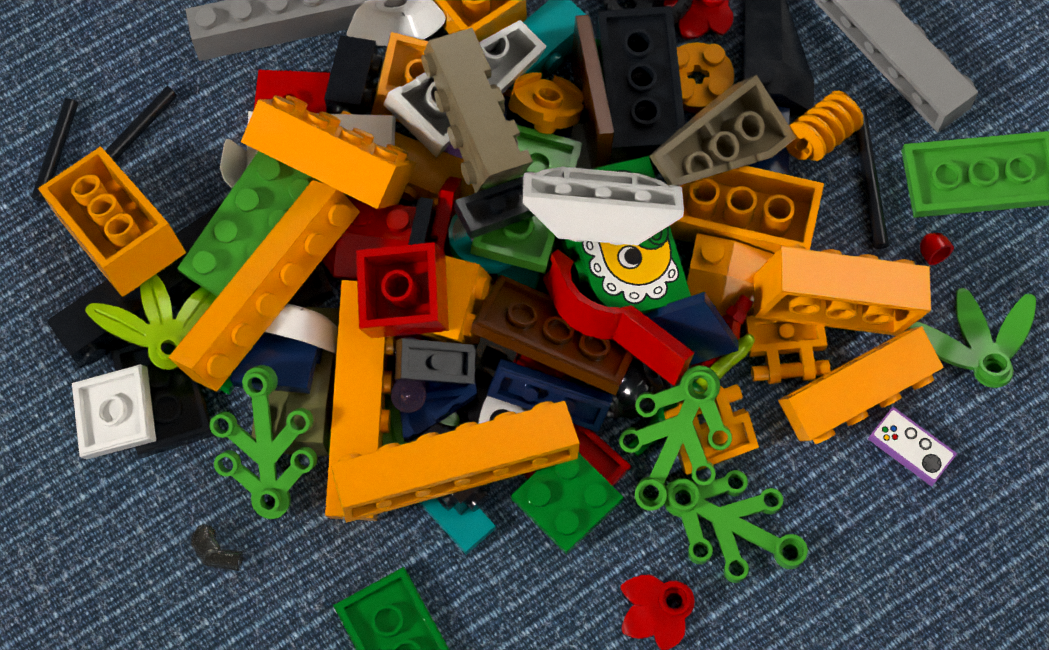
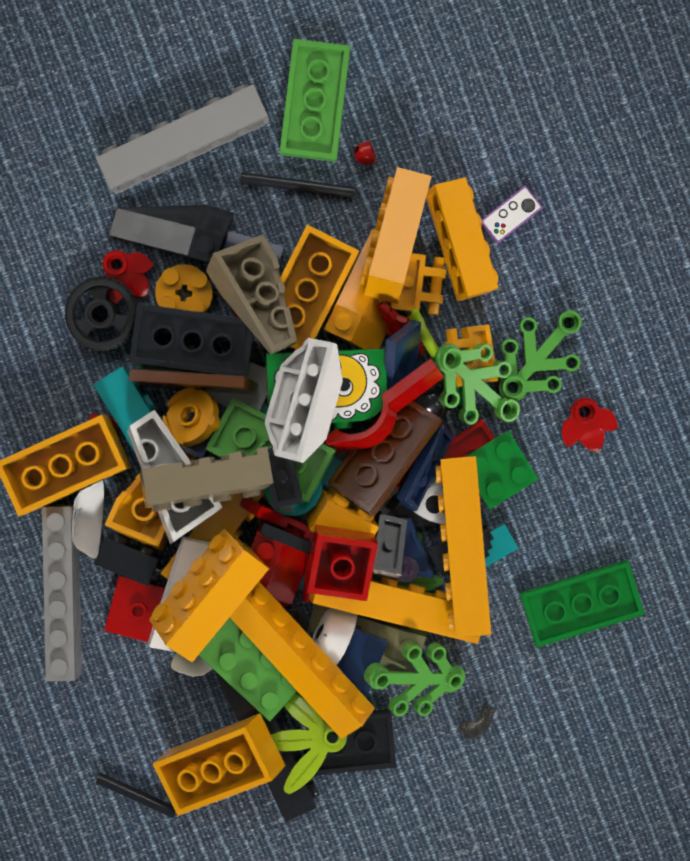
camera: 80 degrees left, 20 degrees up
(113, 412) = (361, 780): white tile -> none
(141, 123) = (130, 729): black bar -> none
(825, 126) = (253, 208): light orange piece -> none
(983, 353) = (452, 141): bright green plant -> none

